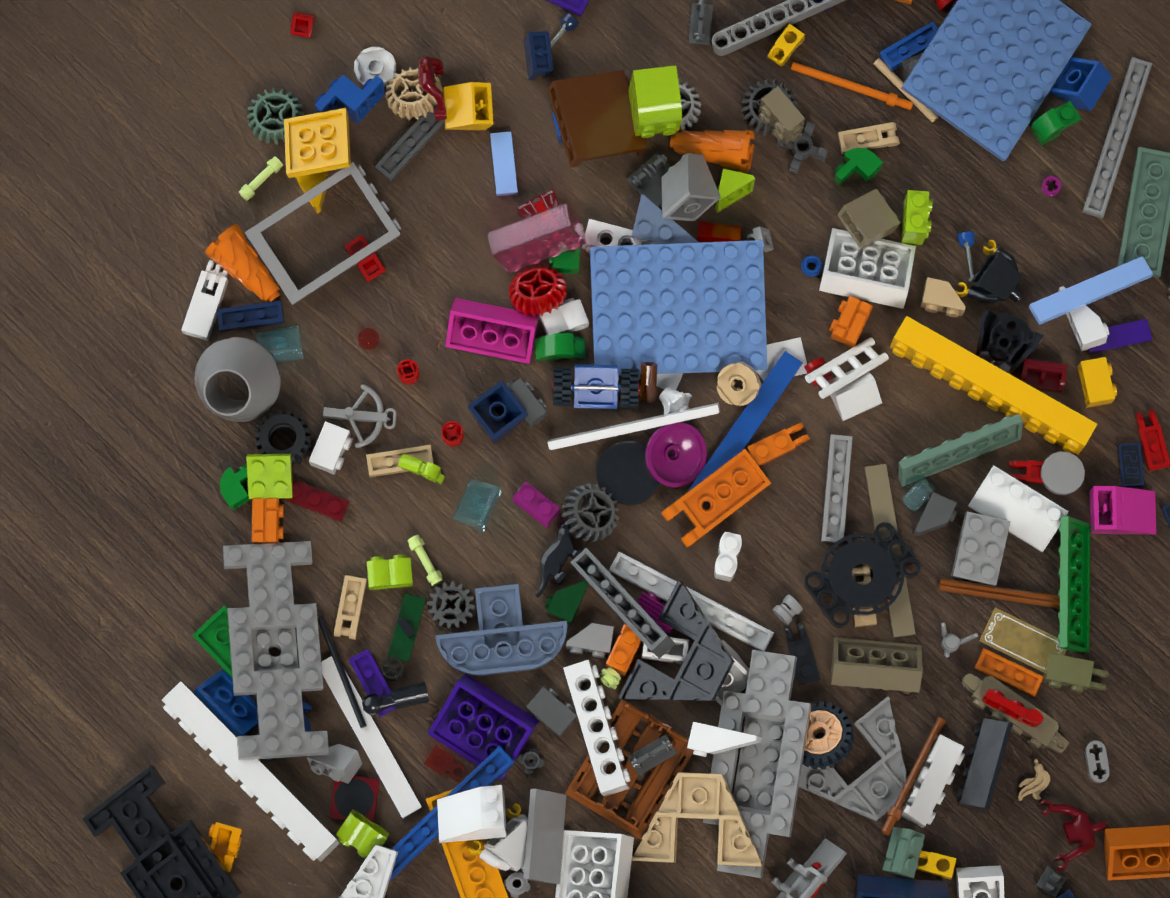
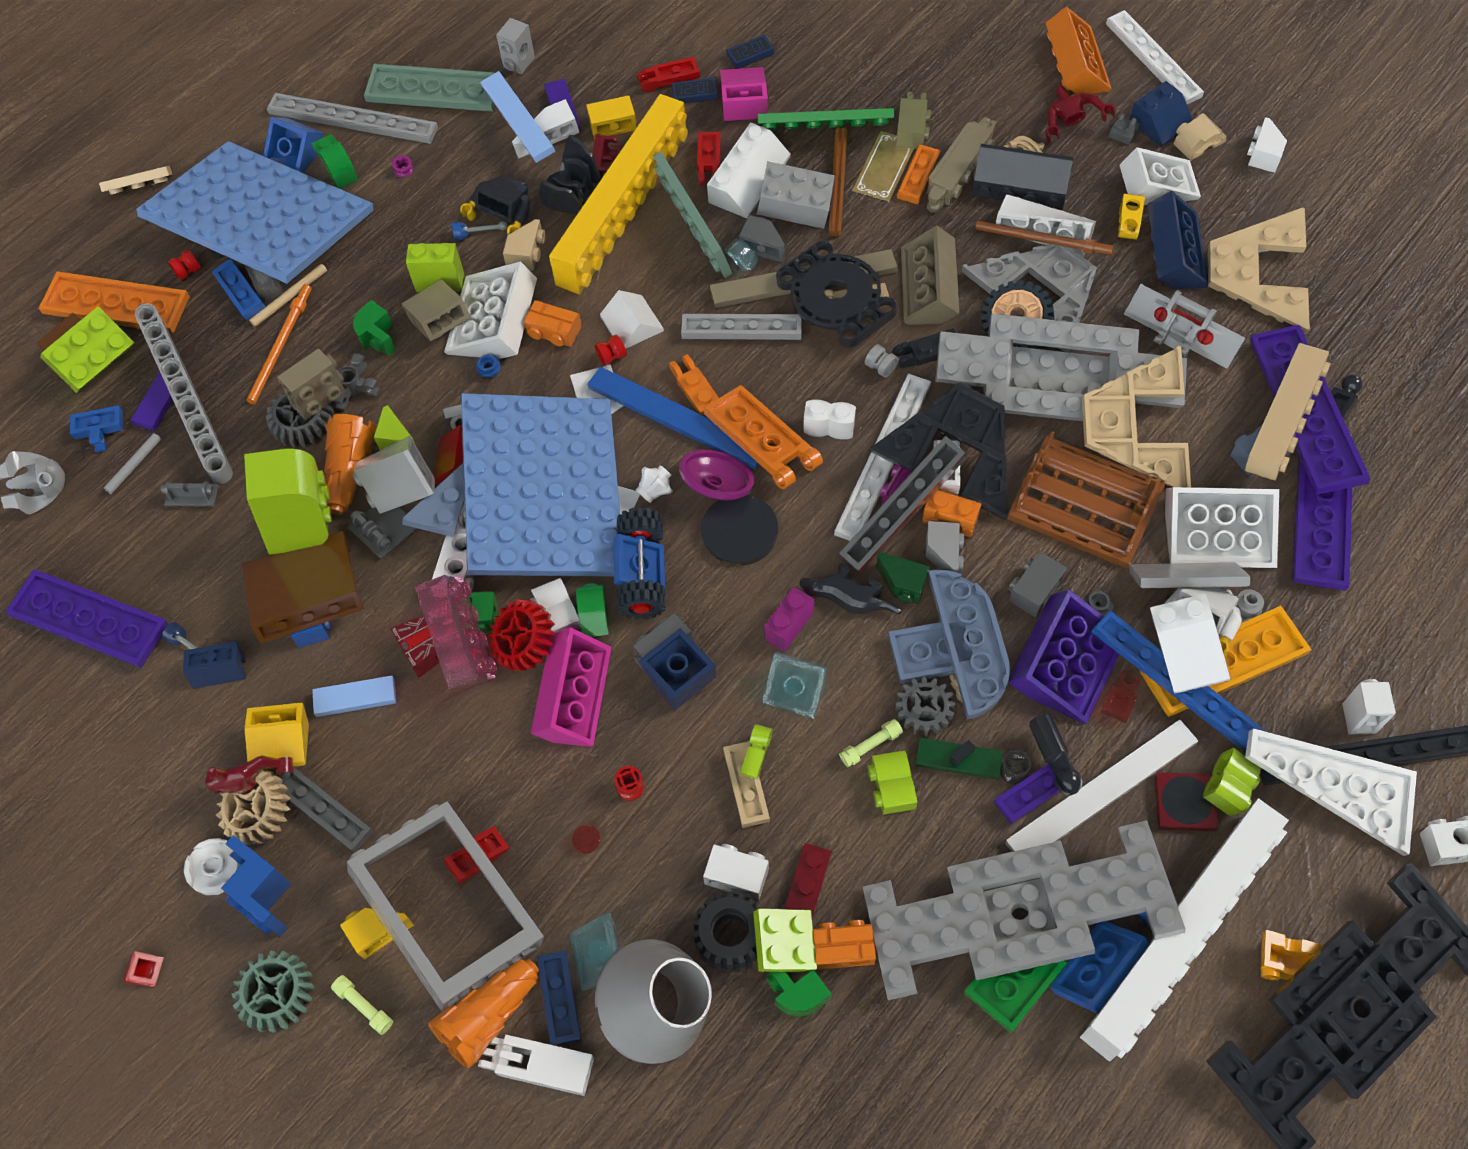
camera: 90 degrees left, 15 degrees down
(317, 143) = (317, 915): yellow plate -> none
(339, 764) = (1156, 812): light grey slope -> none
(341, 671) = (1031, 828): black axle -> none
(350, 606) = (942, 828): tan plate -> none
(379, 417) = (689, 846): light grey piece -> none
(449, 431) = (706, 717): red wheel -> none
(576, 676) = (1108, 497): white brick -> none
(597, 503) = (794, 557): dark grey gear -> none
(610, 677) = (985, 527): yellowish green plate -> none
(634, 426) = (687, 518): white tile -> none
(648, 382) = (616, 506): reddish brown bar -> none
(652, 755) = (1068, 474): dark grey hinge -> none
(715, 740) = (1046, 402): white slope -> none
(726, 383) = (623, 433): tan plate -> none
(786, 45) = (225, 404): yellow leg -> none
(844, 379) = (618, 317): white bar -> none
(868, 137) = (341, 324): tan plate -> none
(903, 852) = (1128, 240): sand green brick -> none
(951, 642) = (896, 218): light grey plant -> none
(1012, 708) = (962, 152): red hinge -> none
(1062, 473) = (709, 134): light grey tile -> none
(1102, 761) = (997, 101): light grey beam -> none

